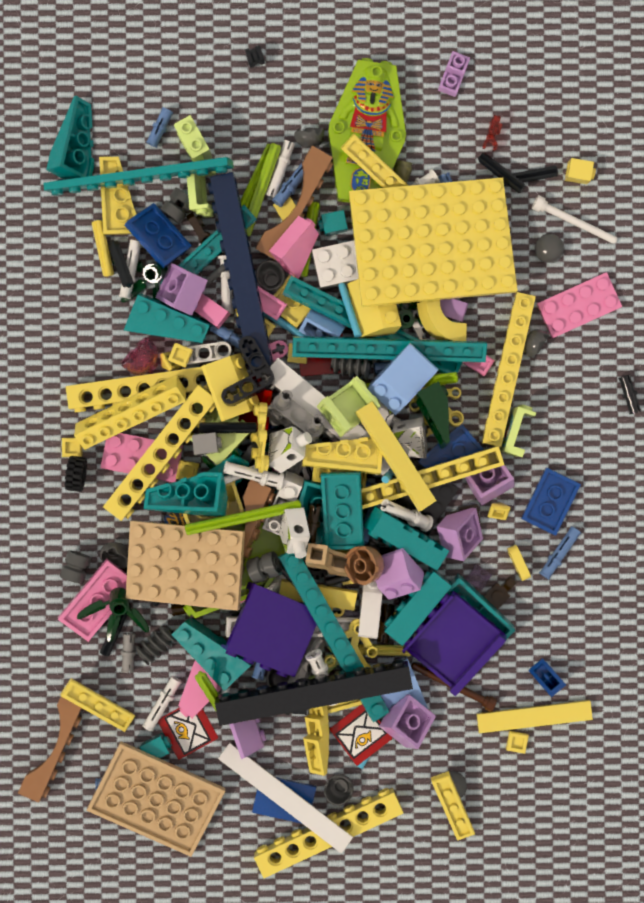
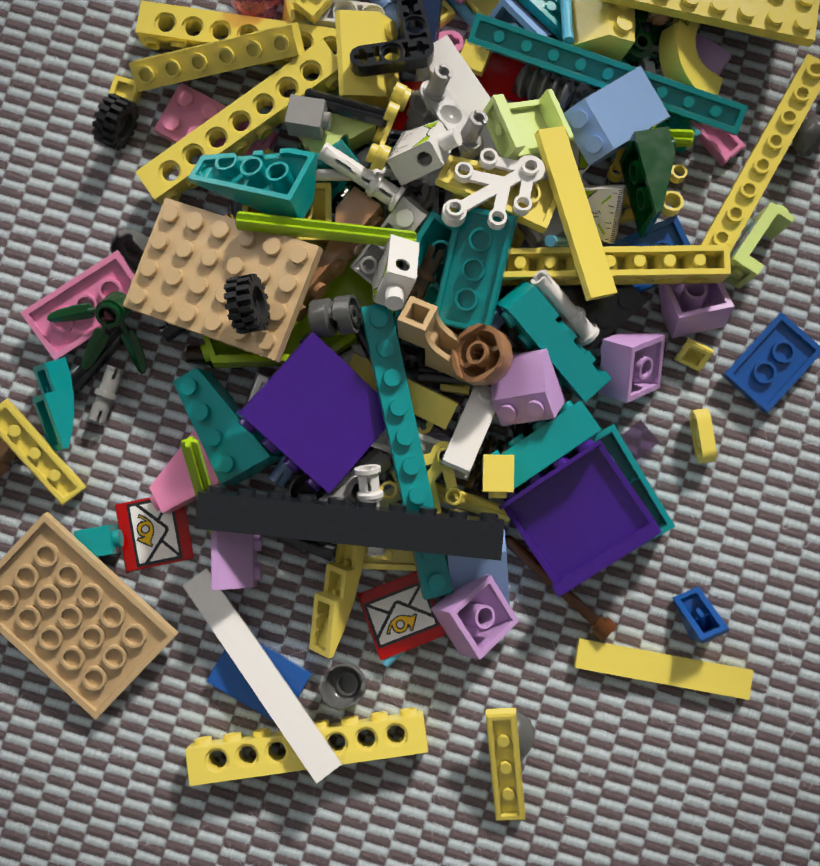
camera: 15 degrees right, 5 degrees down
(75, 567) = (72, 250): dark grey wheel -> none
(98, 668) = (56, 403): none -> teal slope
(151, 722) = (132, 478): white pin -> none
(156, 645) = (147, 394): dark grey piece -> none
(212, 585) = (247, 303): none -> black tyre
(342, 458) = (495, 186): none -> white plant
(395, 635) = (498, 475): none -> light yellow brick
(498, 594) = (661, 473): dark brown plate -> none
(517, 742) = (626, 699): light yellow tile -> none
(562, 549) = (757, 447): medium blue pin -> none

